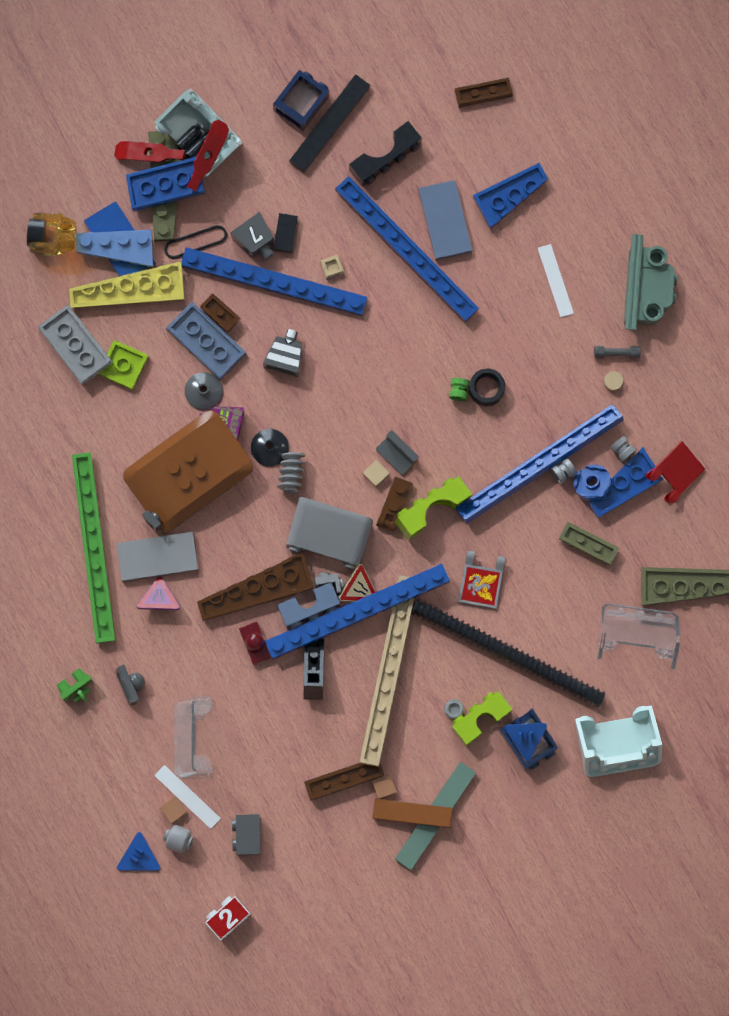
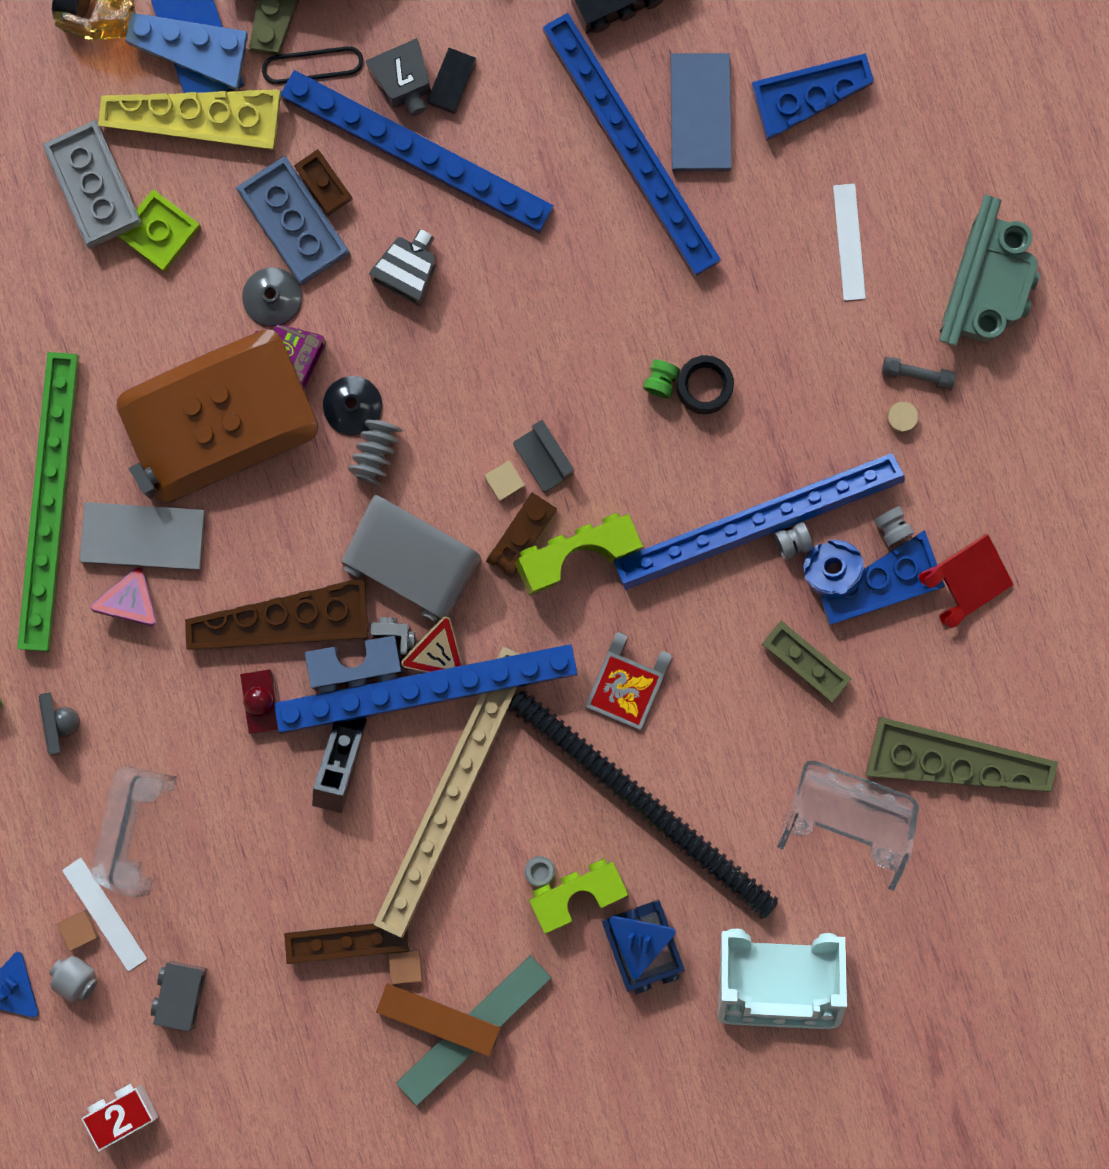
camera: 20 degrees right, 5 degrees up
(332, 266) = (510, 147): tan tile -> none

